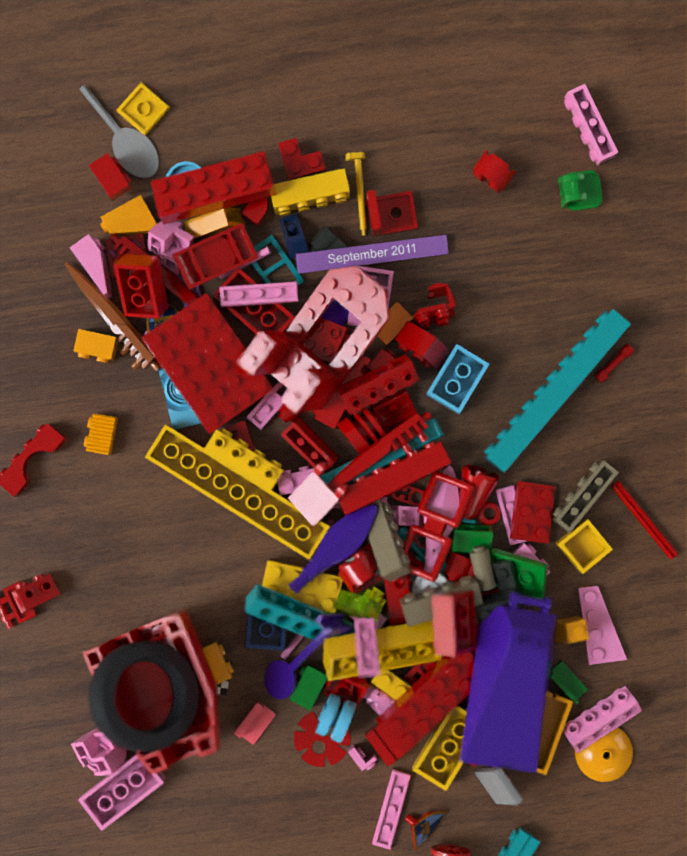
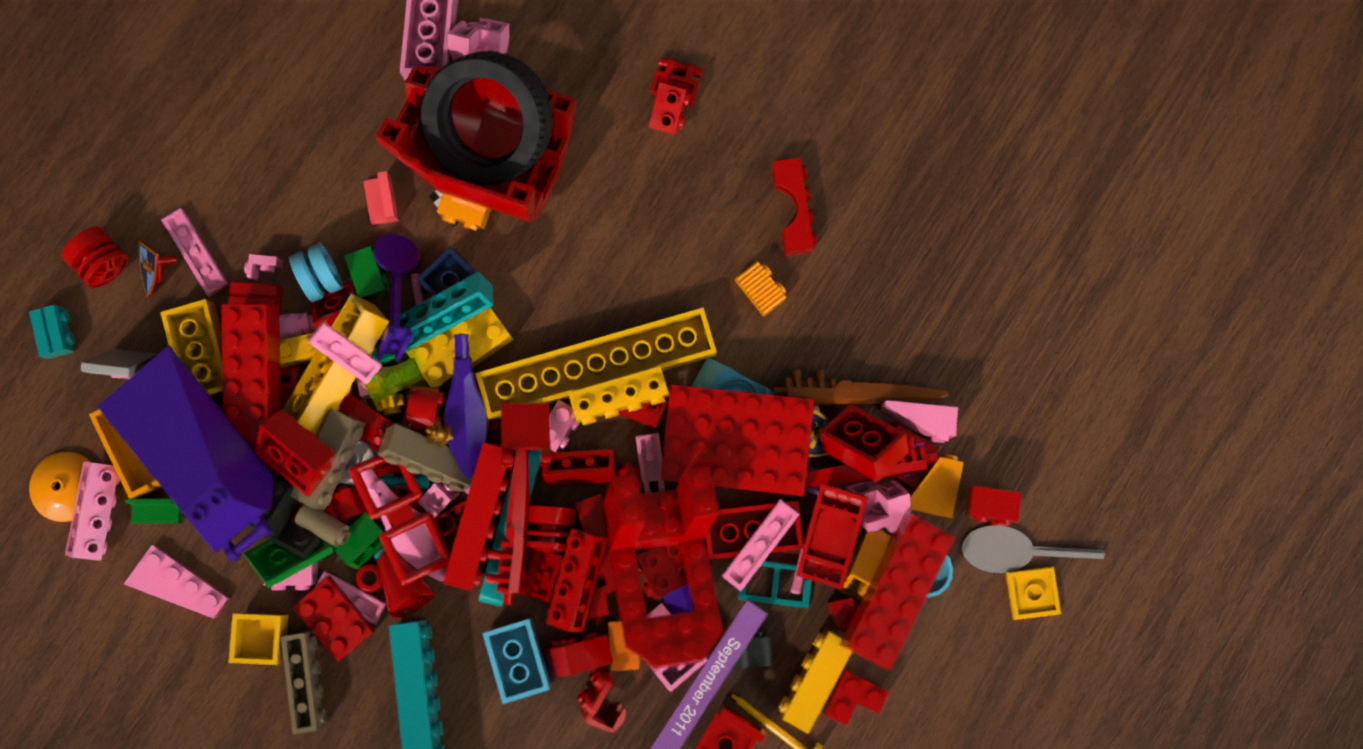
camera: 135 degrees right, 5 degrees down
(95, 345) = (846, 354): light orange brick -> none
(293, 235) = (789, 627): dark blue slope -> none
(305, 740) = (325, 231): red piece -> none
(364, 546) = (438, 433): none -> pearl gold wheel
(571, 630) = (193, 556): light orange slope -> none
(644, 520) = (231, 718): red axle -> none

